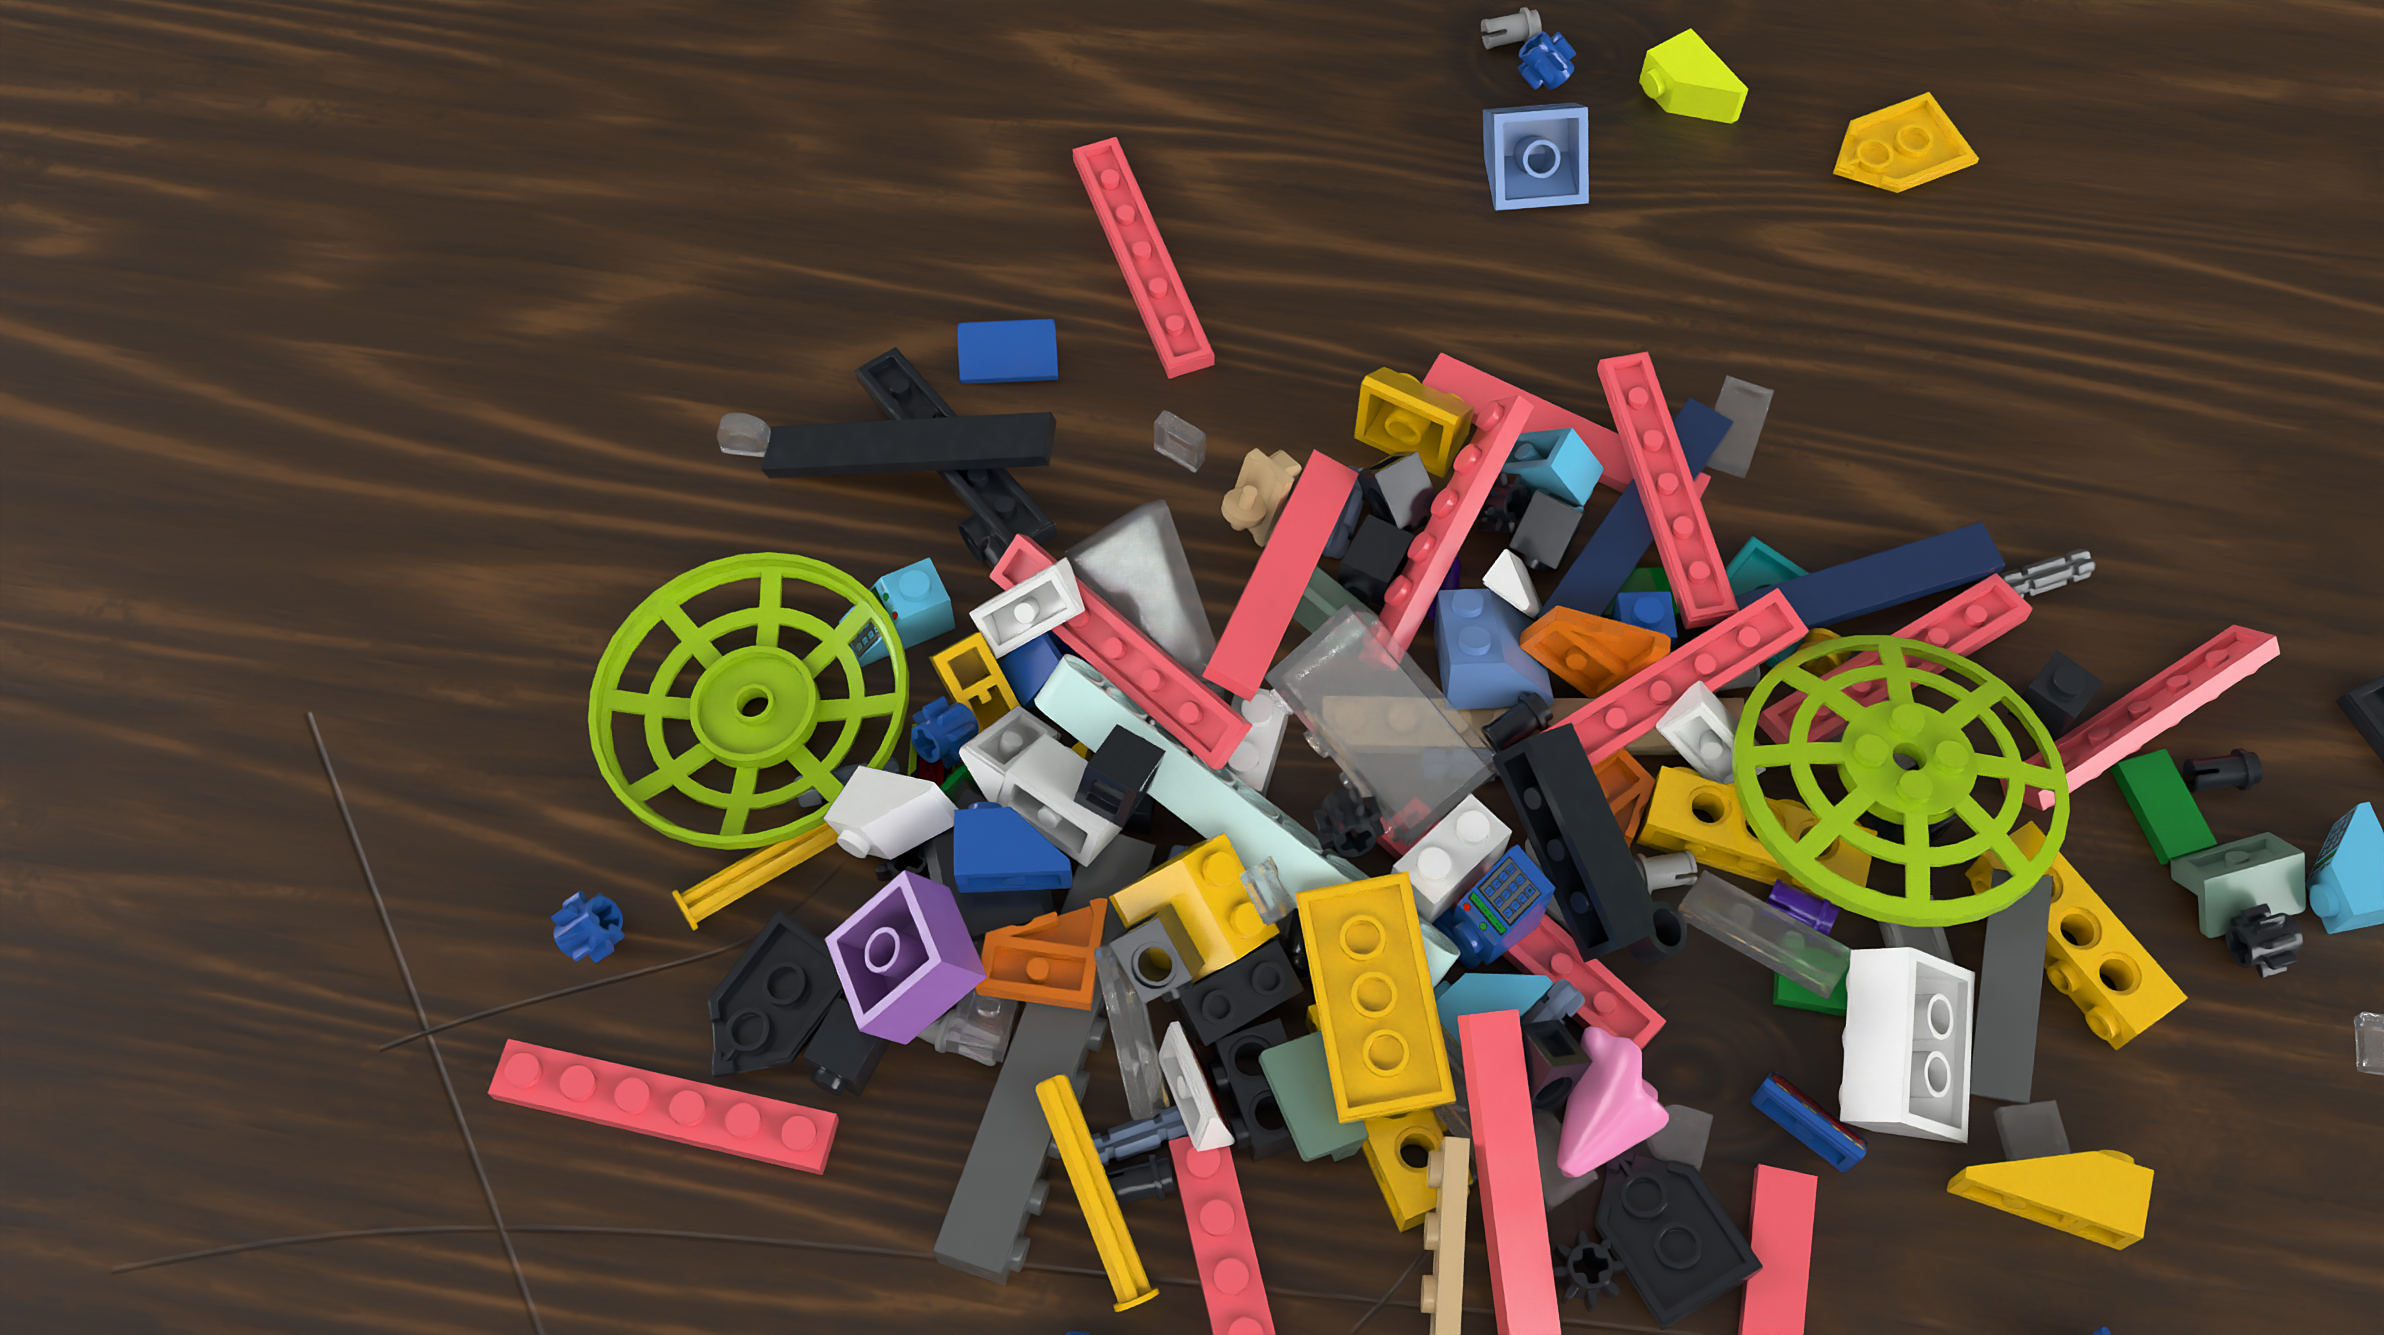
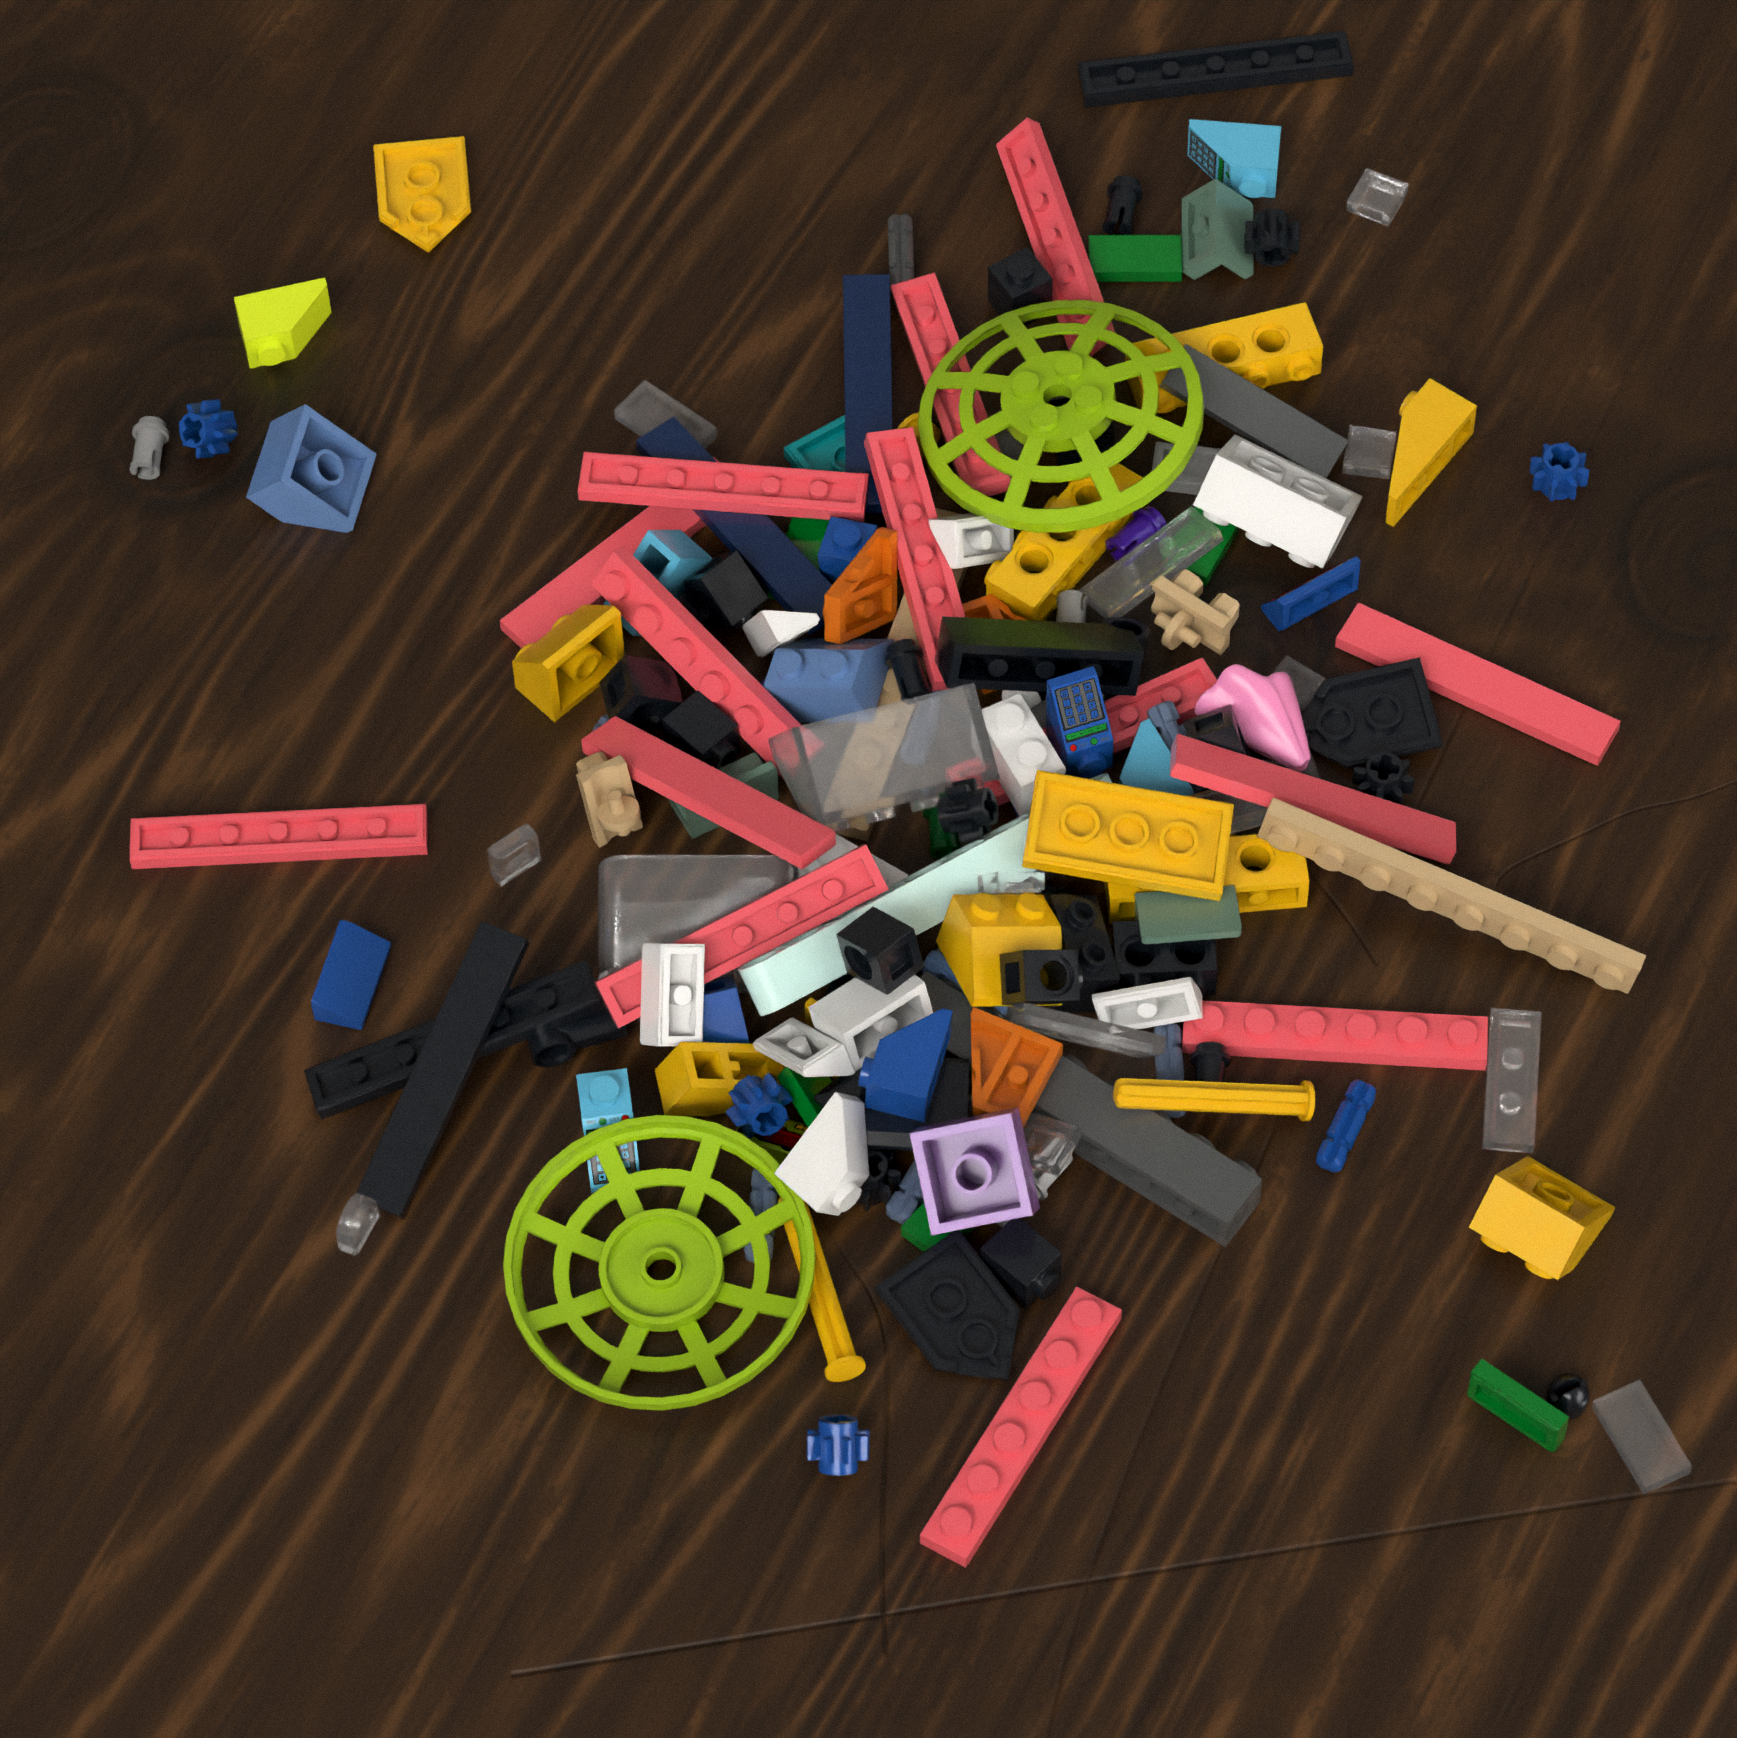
camera: 70 degrees left, 5 degrees down
(1730, 974) = (1188, 617): none -> tan hips

